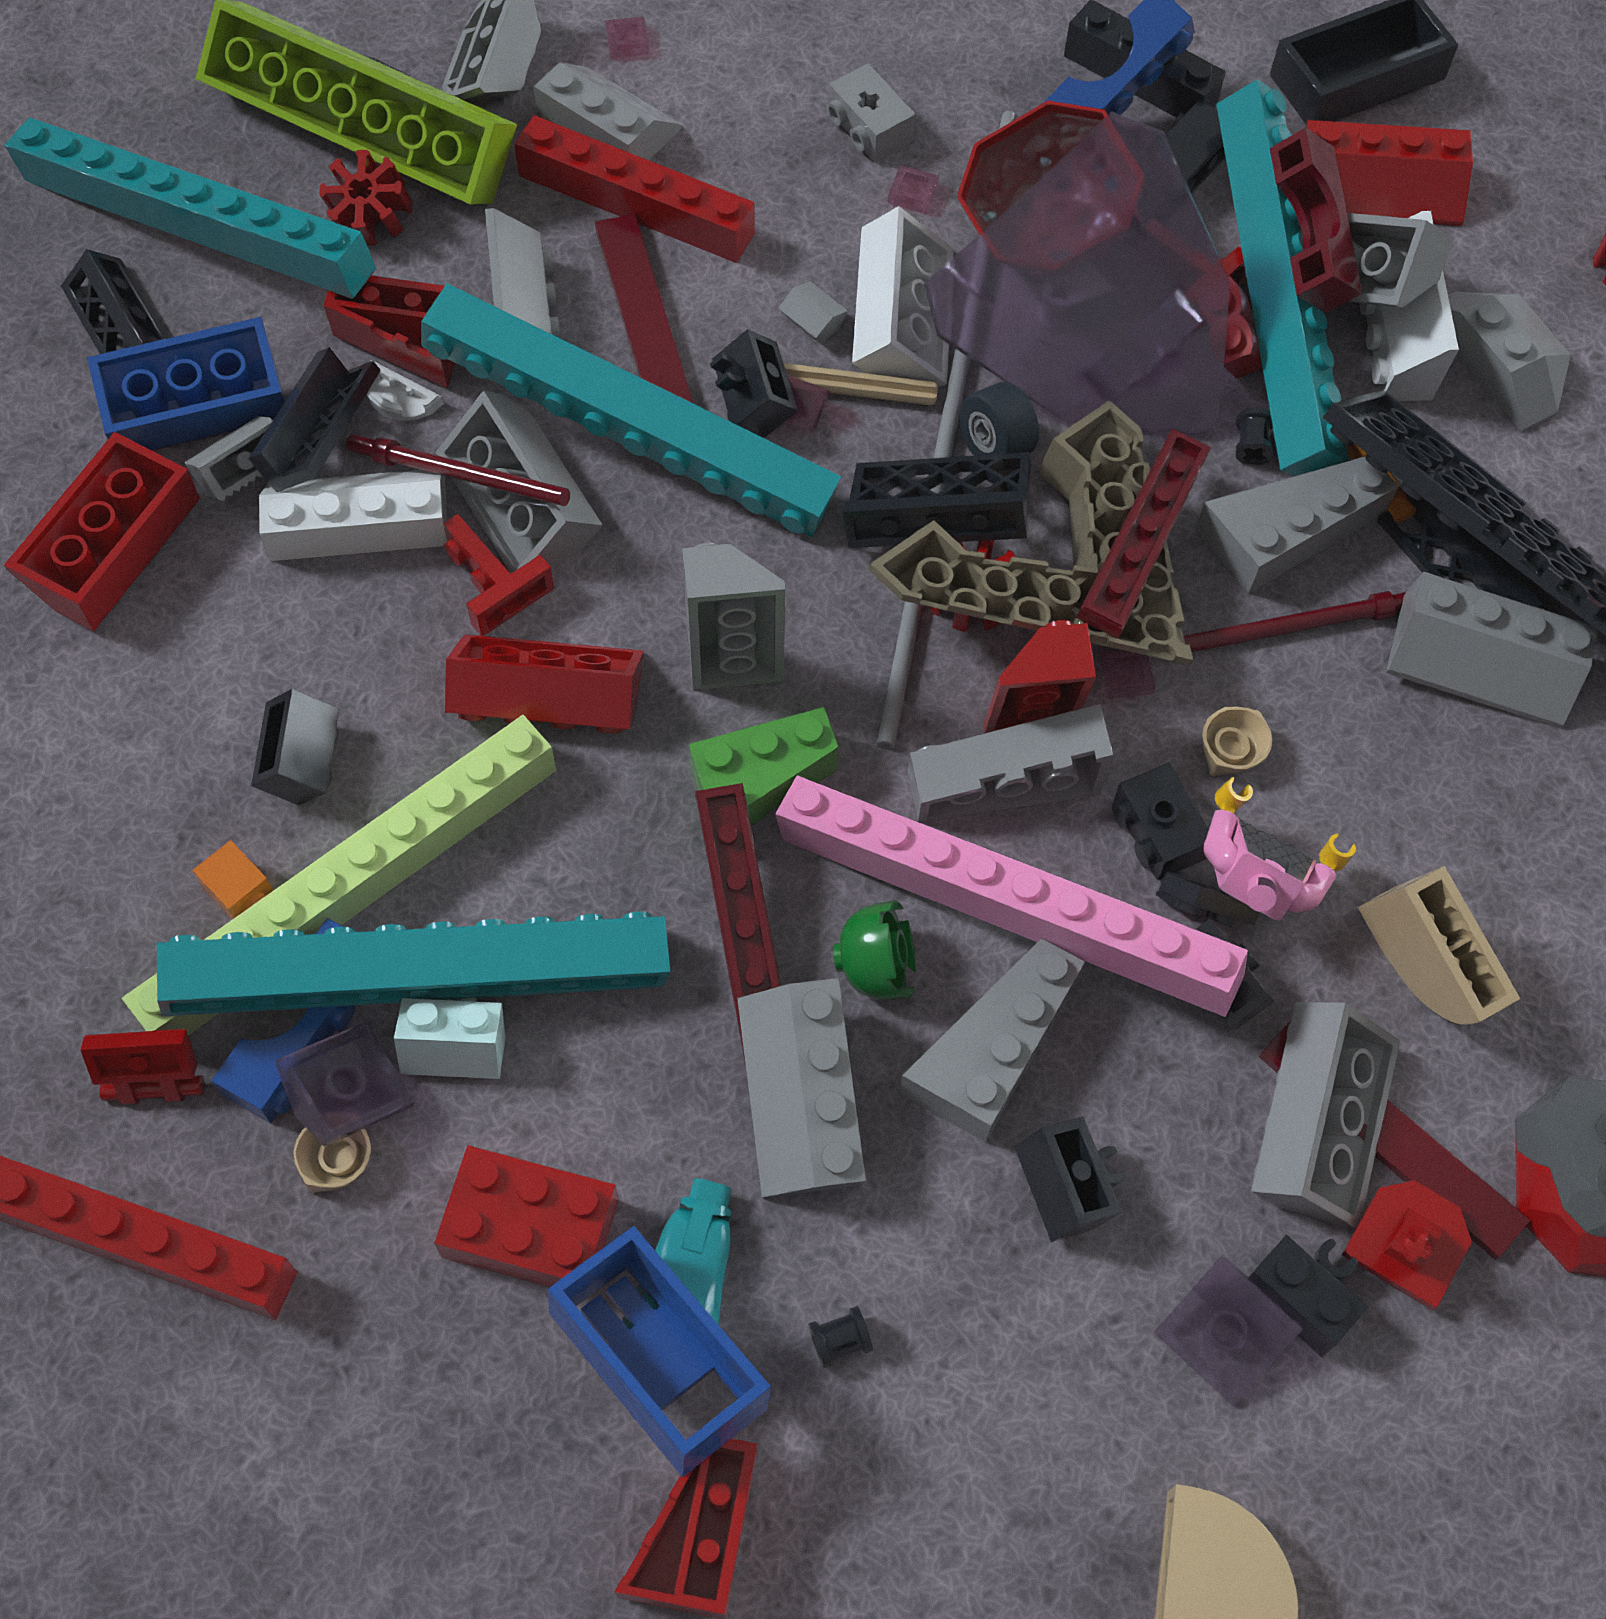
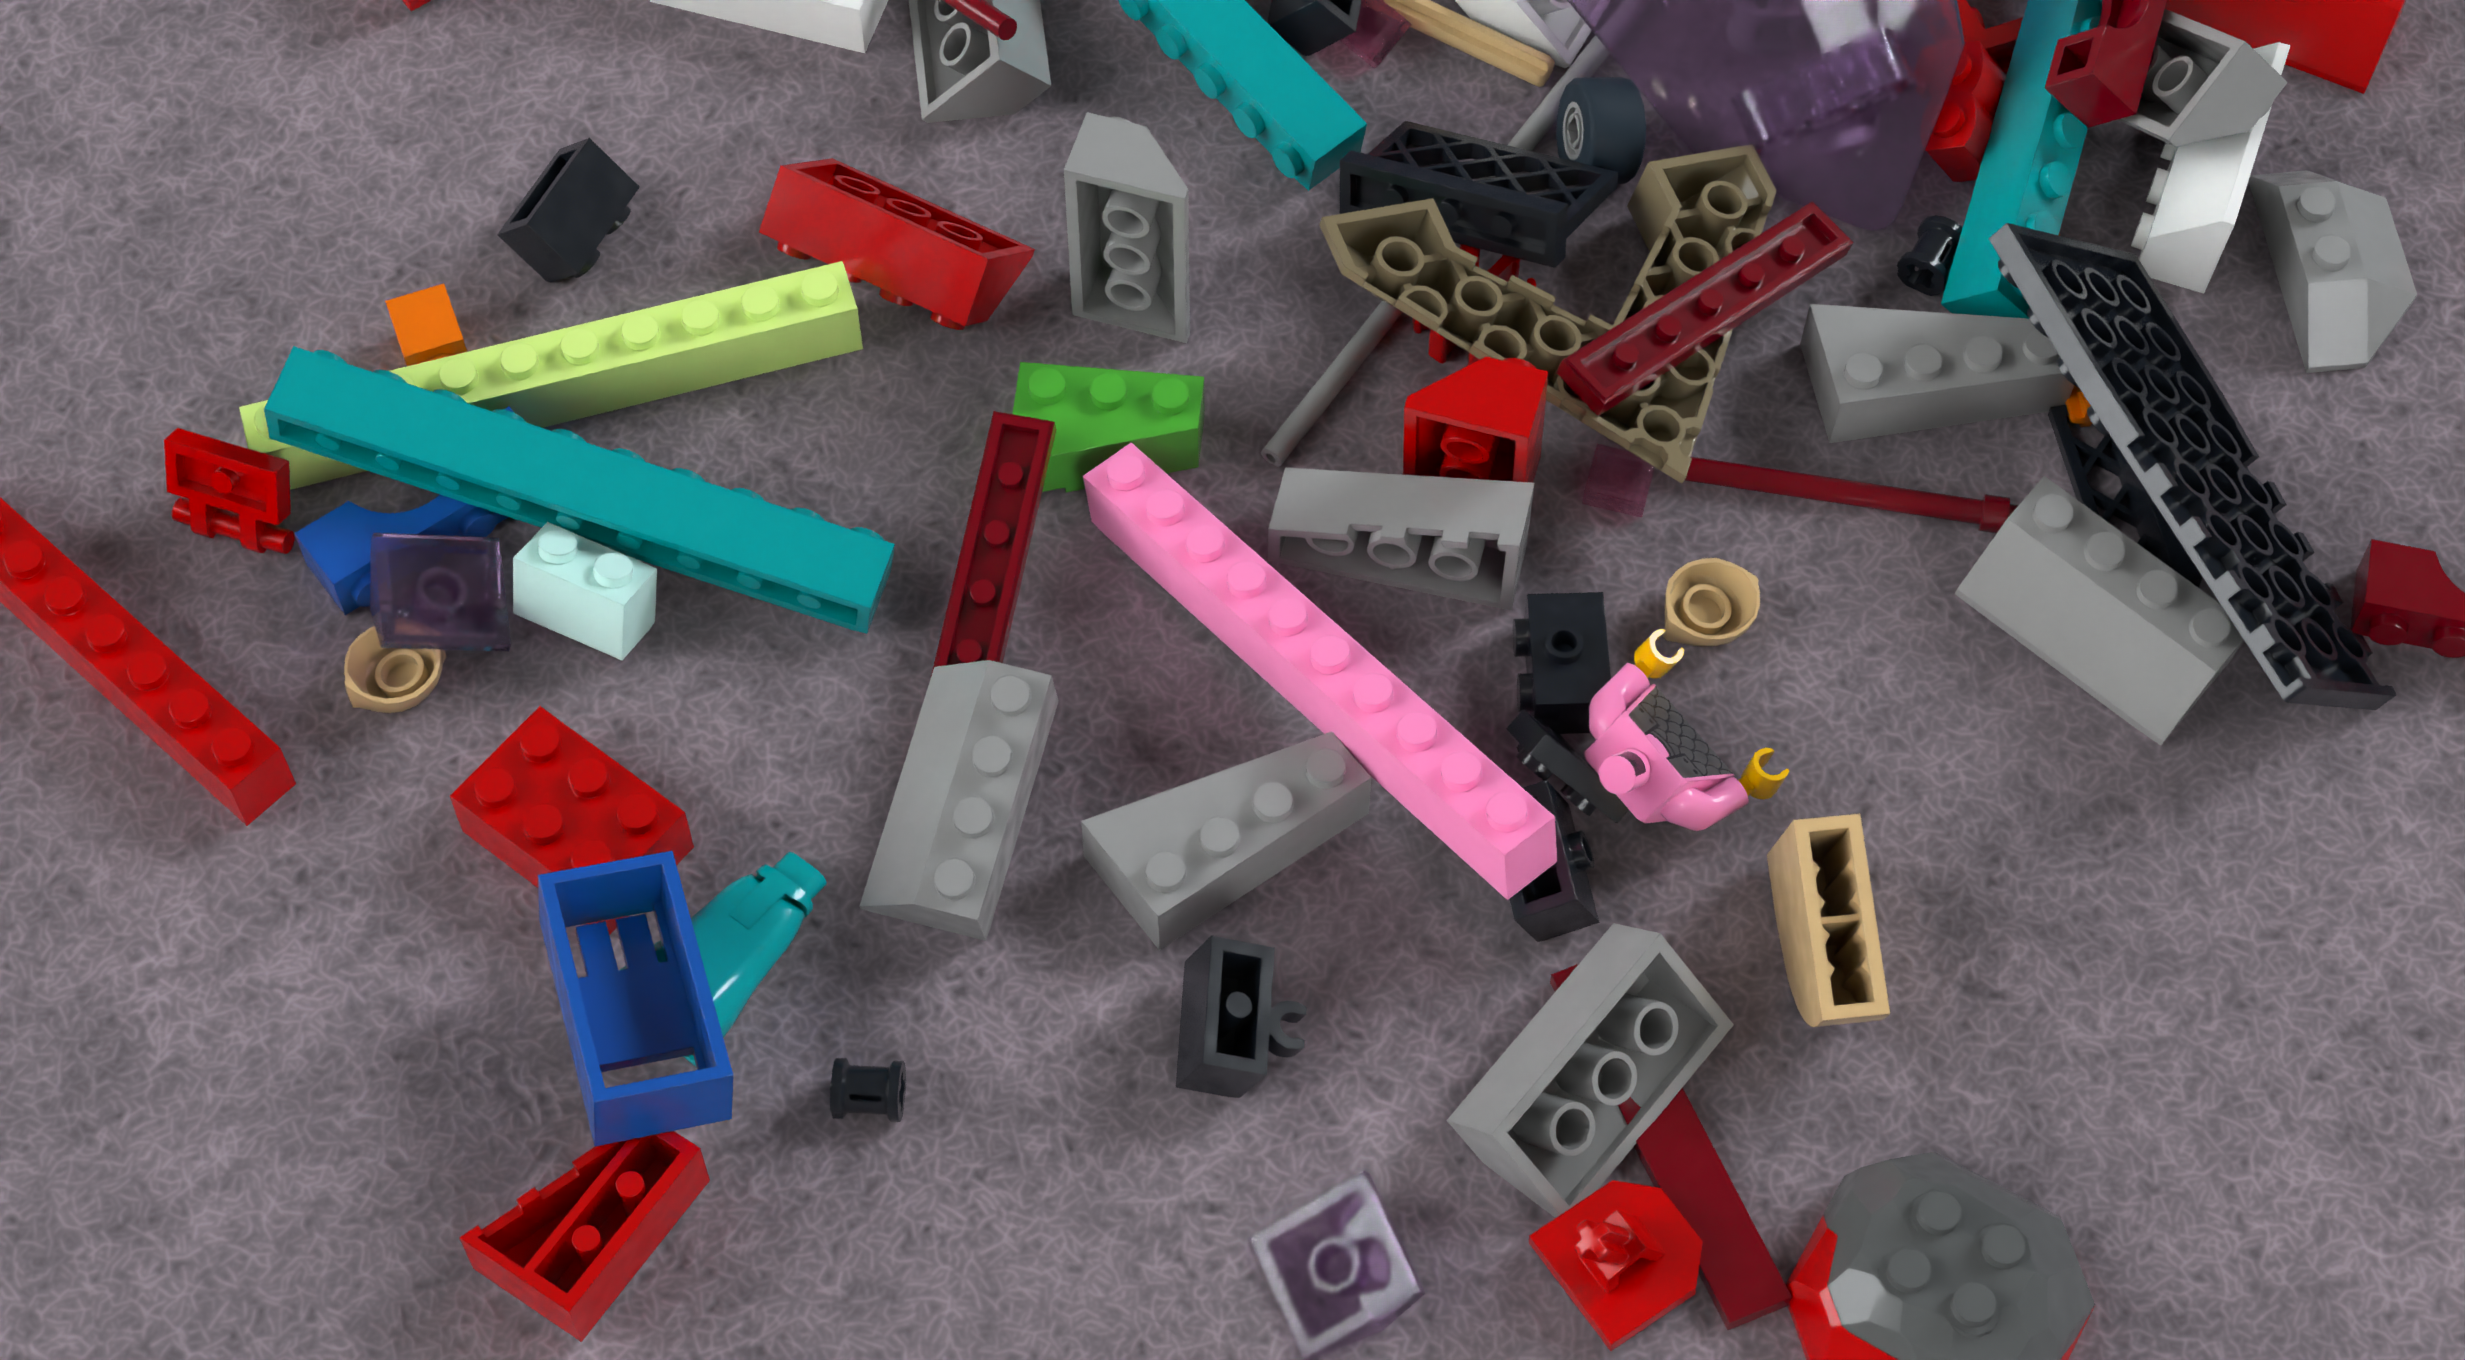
camera: 25 degrees right, 5 degrees down
(501, 592) = (894, 124): red bracket -> none
(876, 952) = (1129, 667): green cylinder -> none
(1311, 1292) = (1459, 1261): black brick -> none

